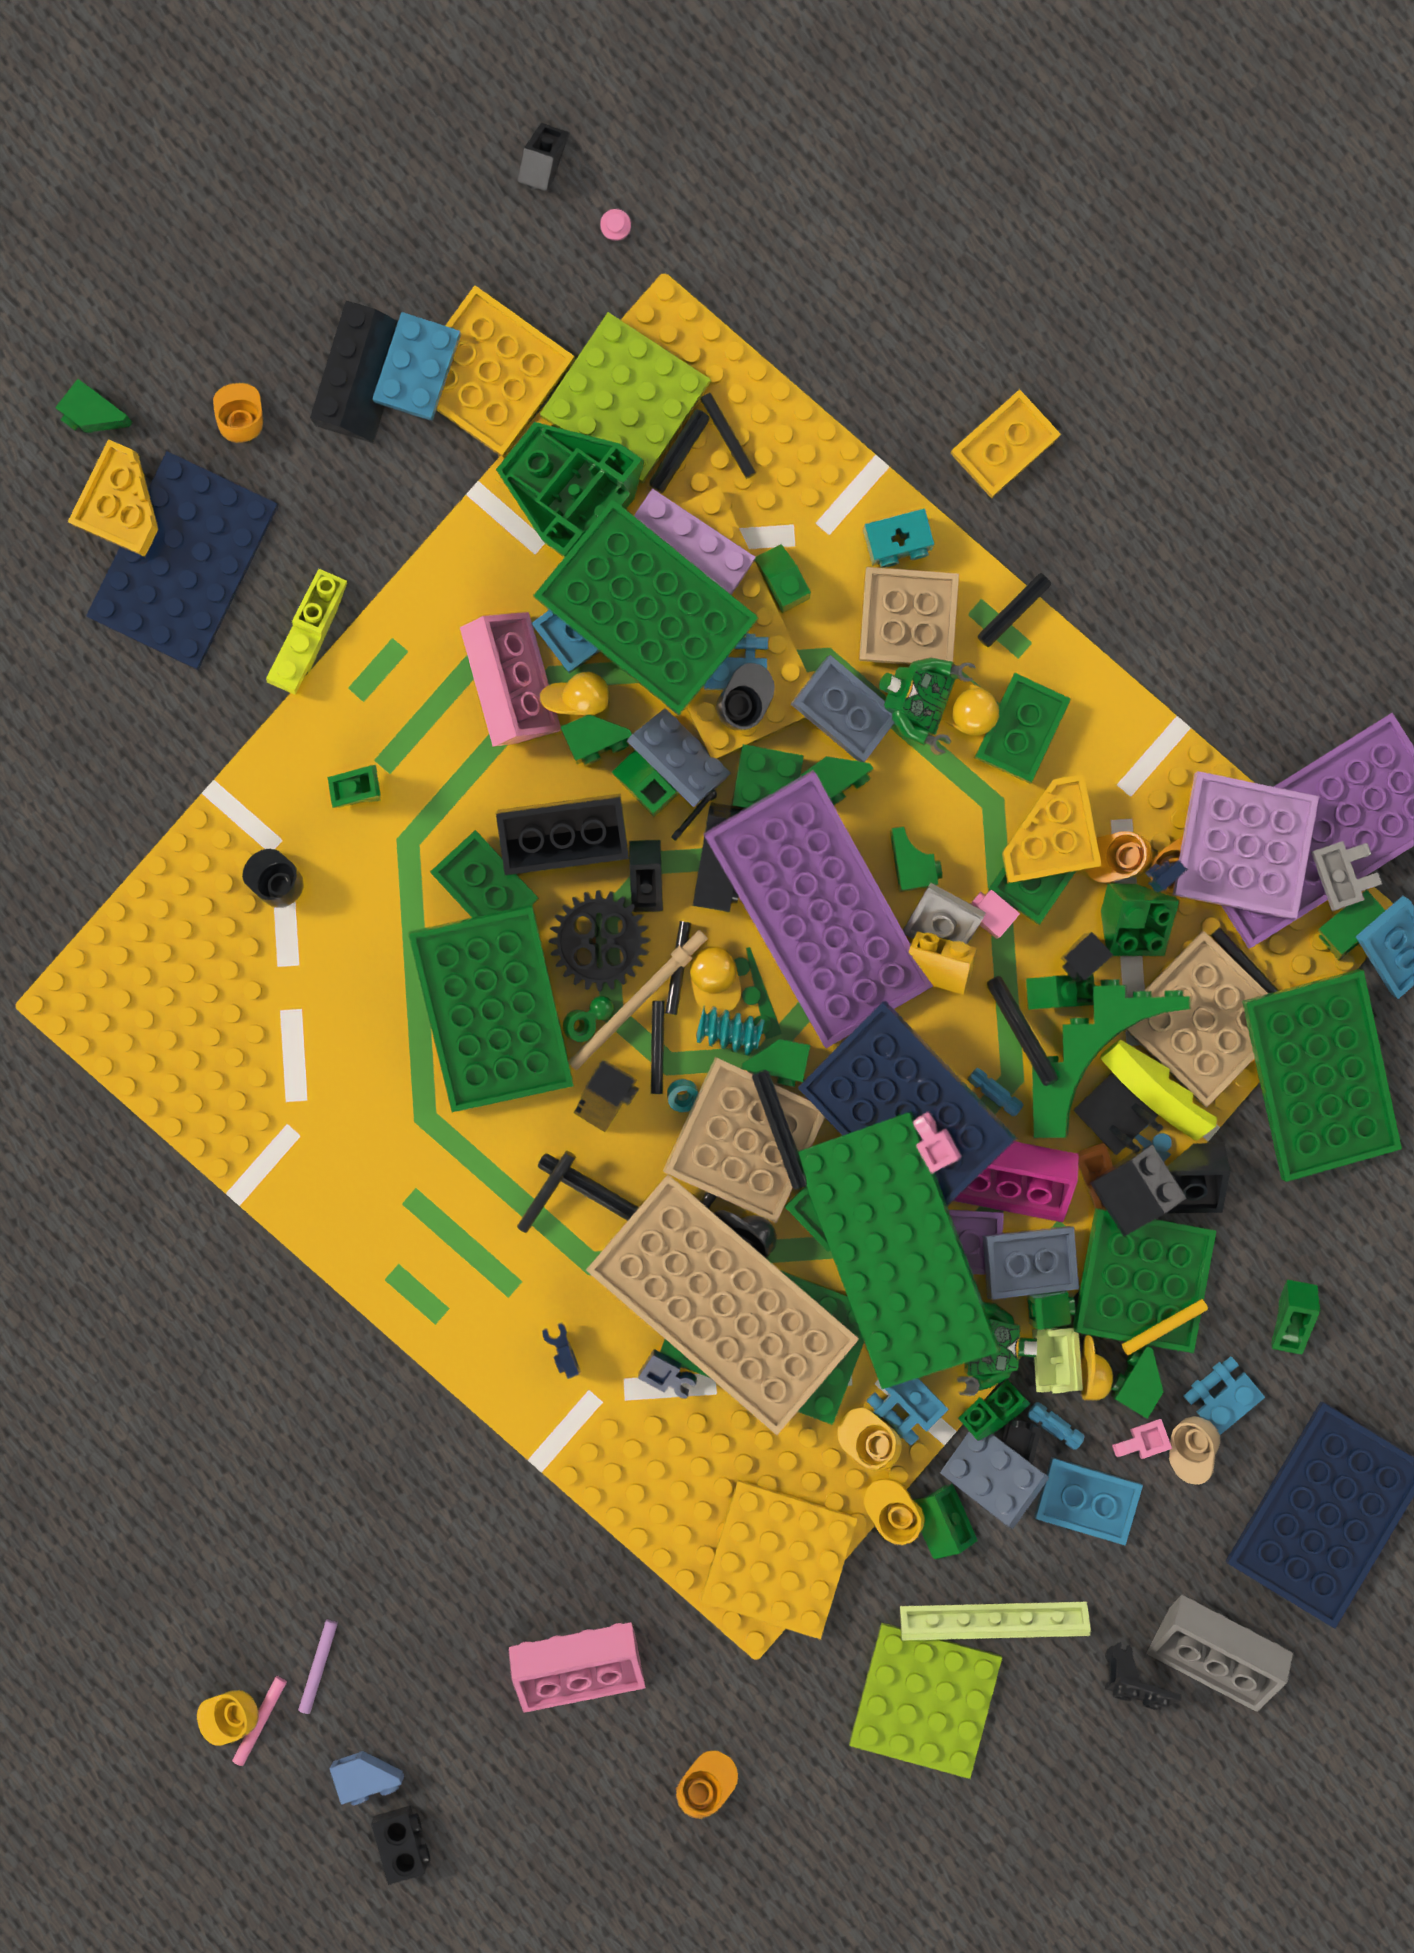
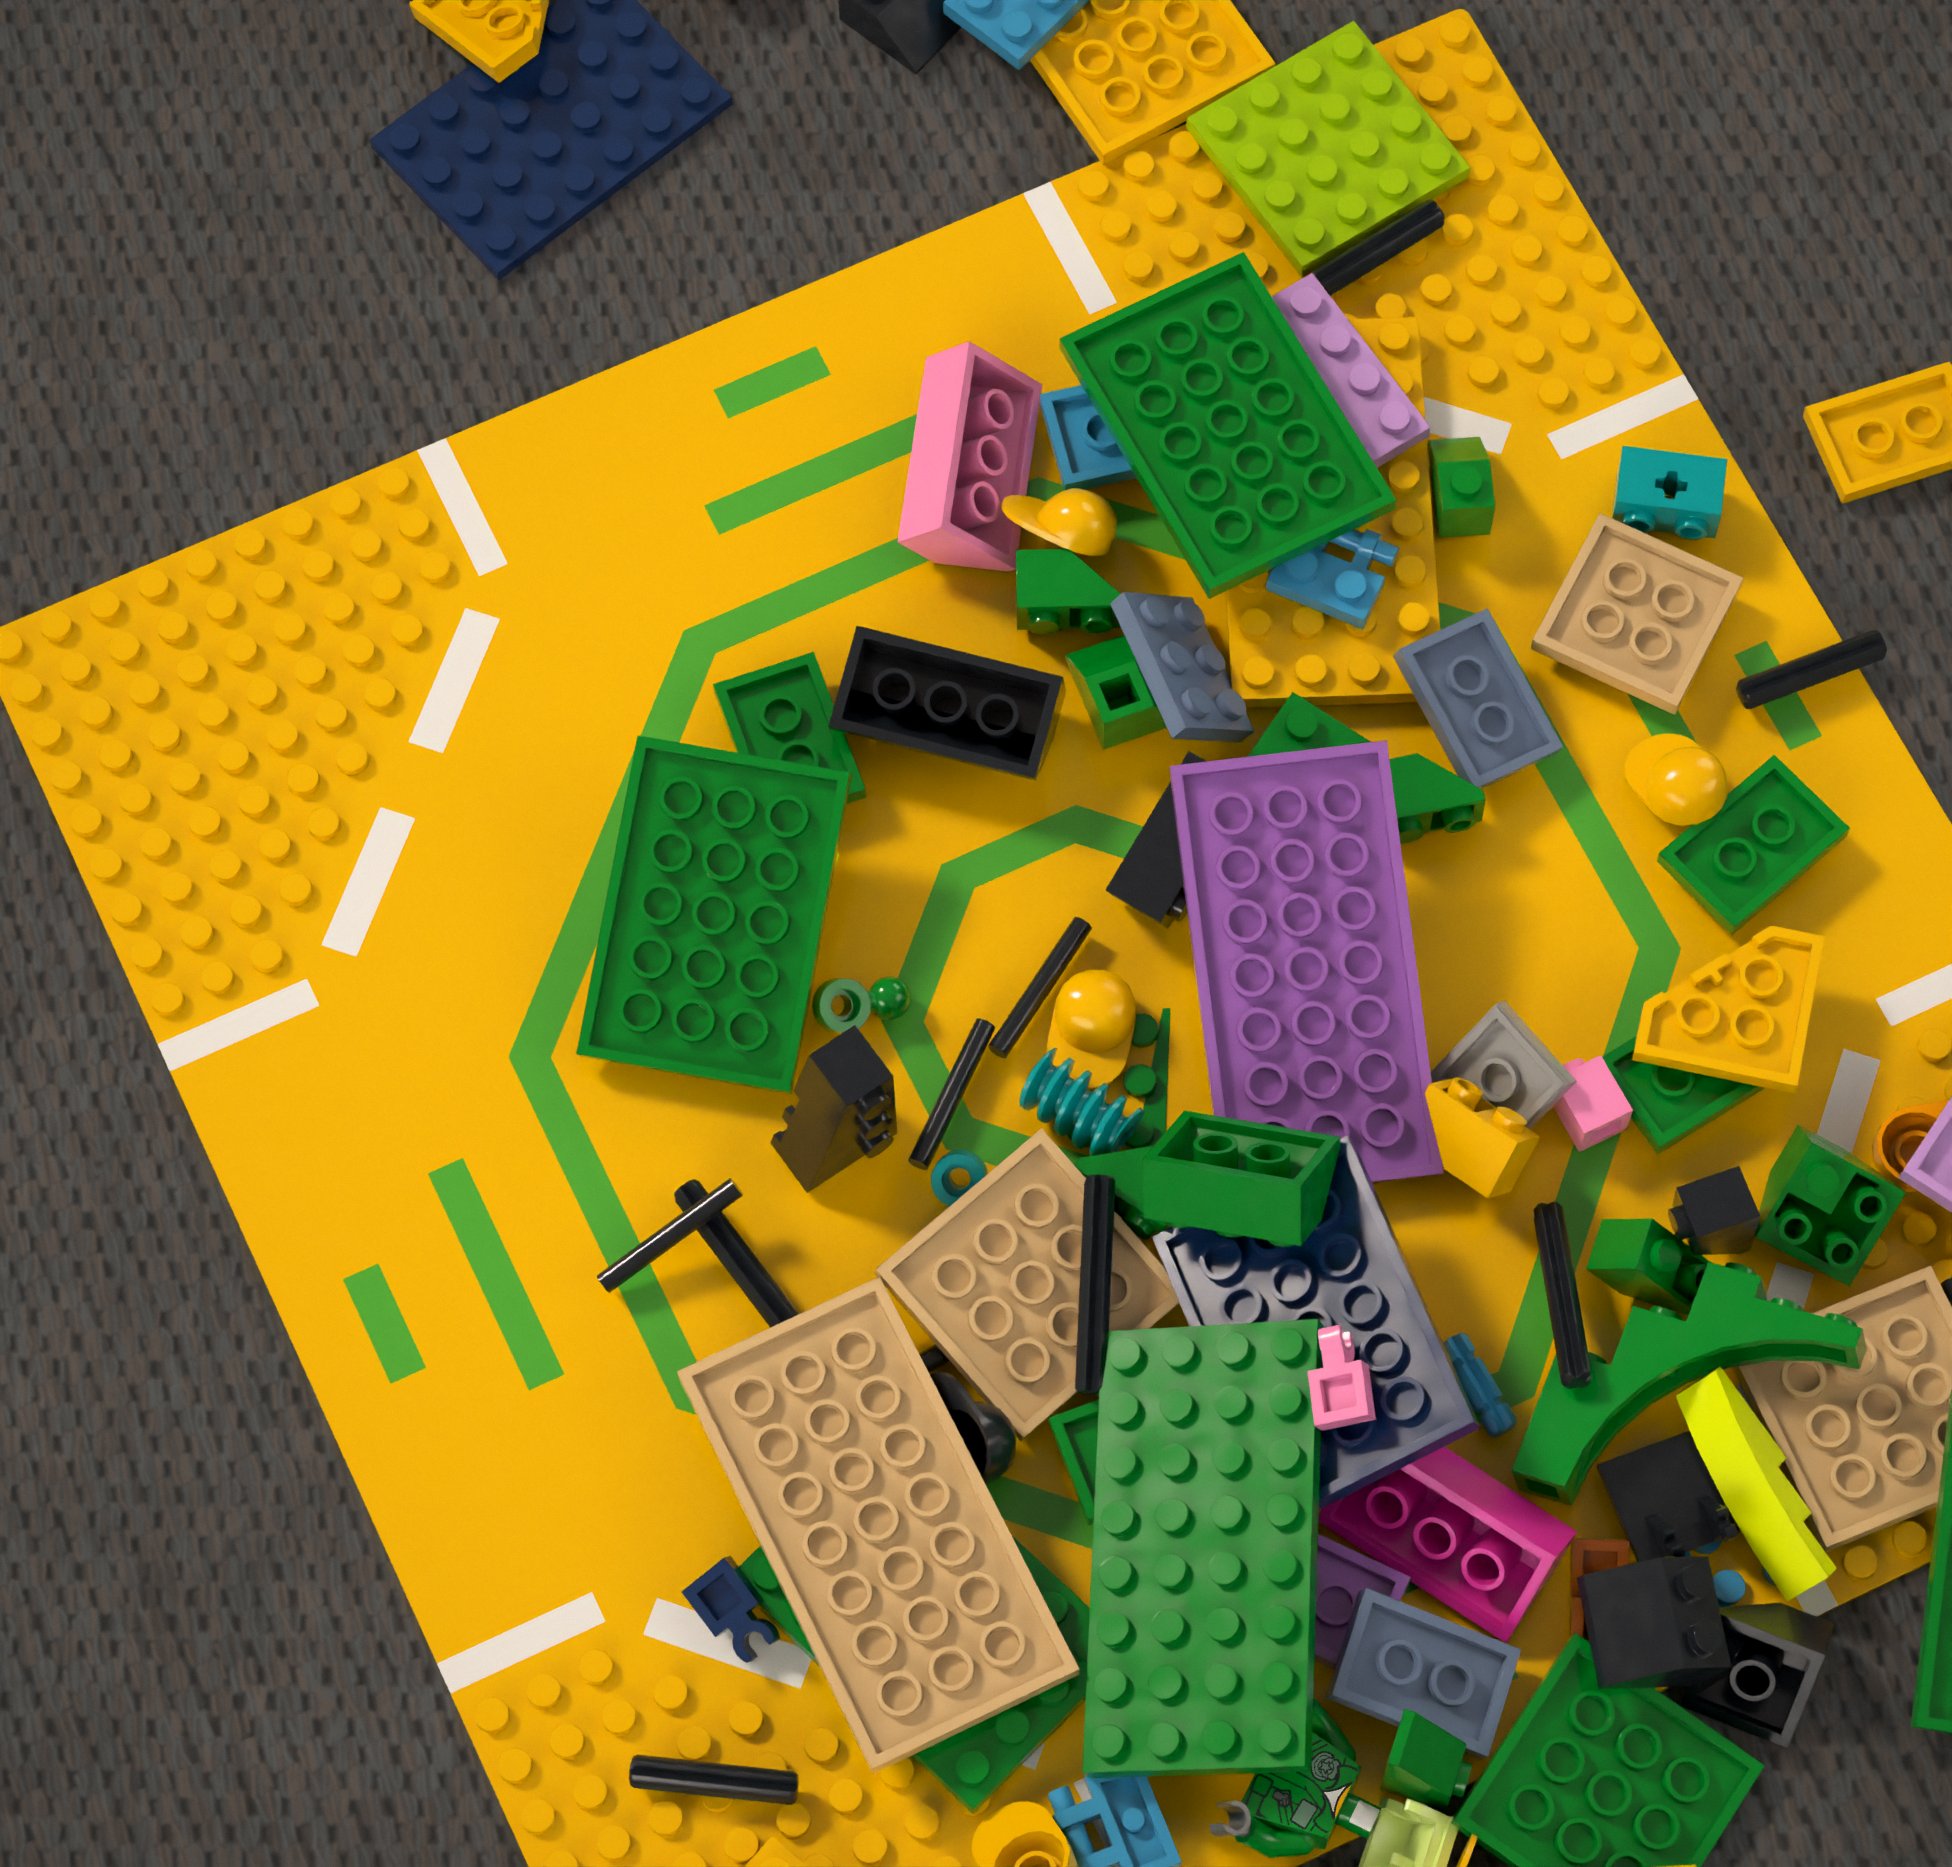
camera: 25 degrees right, 20 degrees down
(273, 878) = (467, 602): black cap -> none
(307, 632) = (695, 284): neon yellow slope -> none
(354, 787) = (658, 517): green slope -> none
(565, 1359) = (578, 1512): dark blue plate -> none
(568, 481) = (1185, 208): green wedge -> none
(571, 940) = (889, 877): black gear -> none
(646, 875) = (1050, 825): black slope -> none
(680, 957) = (1051, 964): tan bar -> none
(696, 1464) = (714, 1779): none -> black axle
(711, 796) = (1208, 751): black hinge -> none
(728, 435) = (1463, 257): black bar -> none
(745, 697) = (1325, 614): black cap -> none
(835, 1047) = (1239, 1178): none -> green slope
(913, 867) = (1489, 972): green arch -> none
(920, 697) = (1606, 726): green torso -> none
(1121, 857) = (1836, 1095): light orange cap -> none
(1165, 874) = (1896, 1127): dark blue plate -> none

